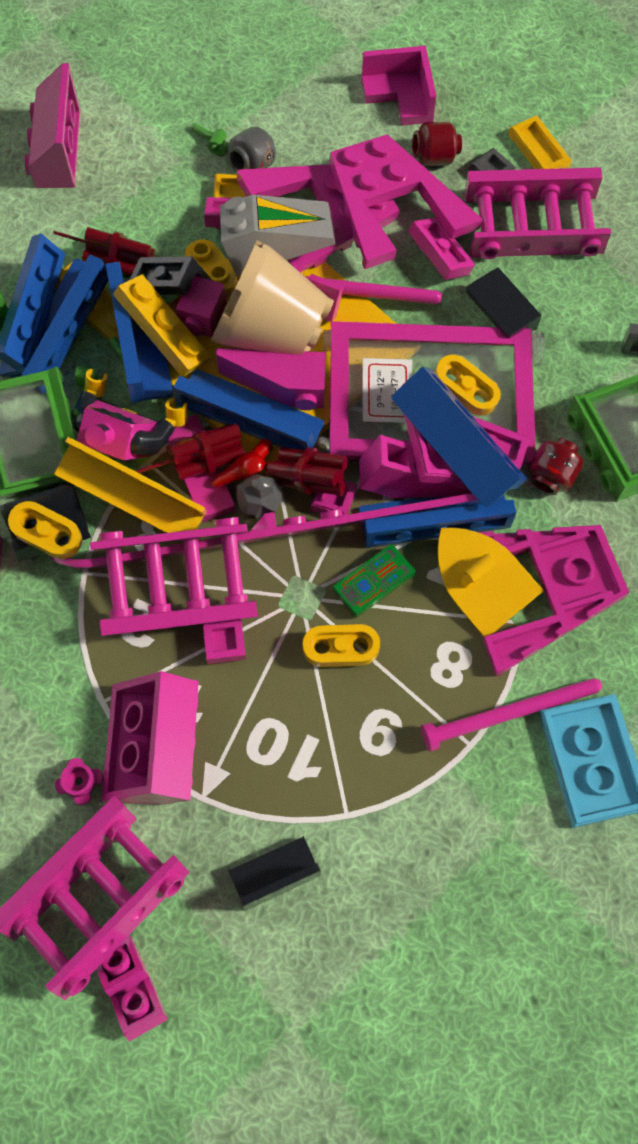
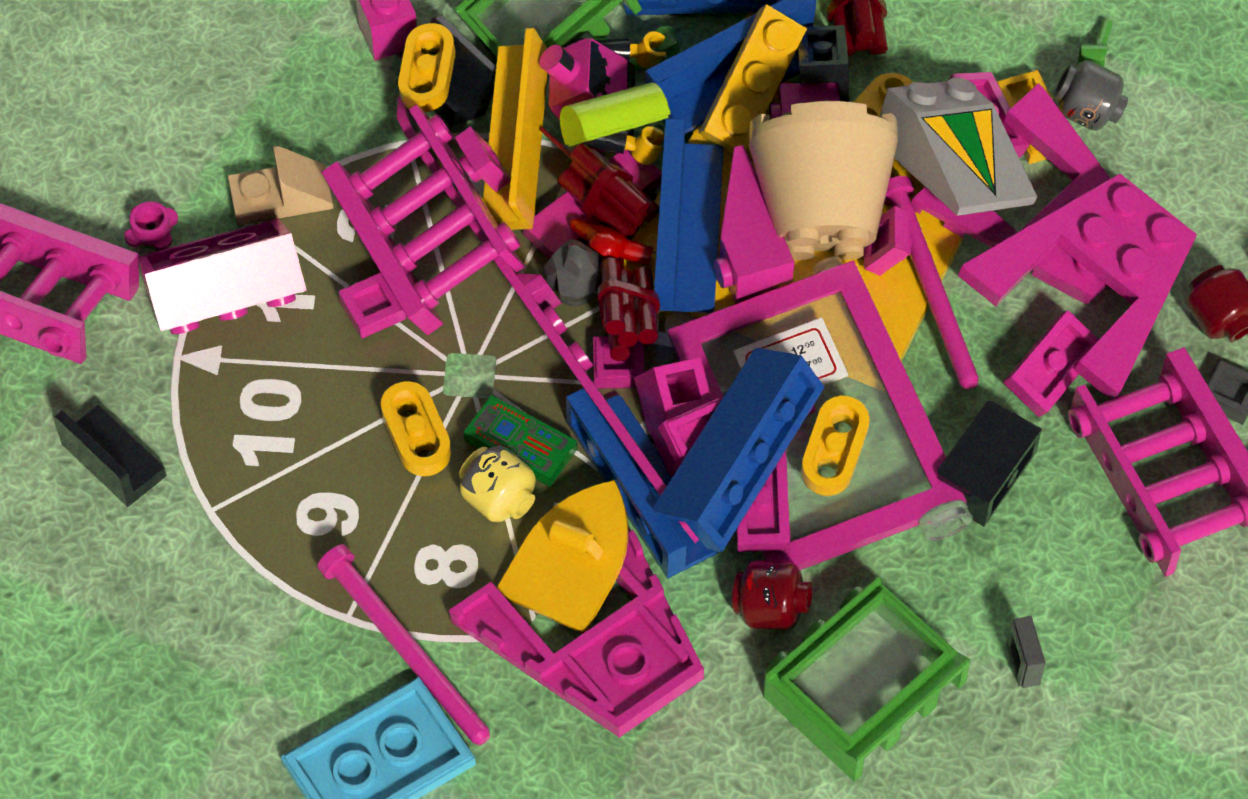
camera: 70 degrees right, 10 degrees down
(90, 676) = (280, 191): none -> tan slope
(149, 520) = (481, 160): none -> dark pink plate
(161, 415) = (613, 113): none -> lime brick
(408, 605) = (497, 483): none -> light yellow head

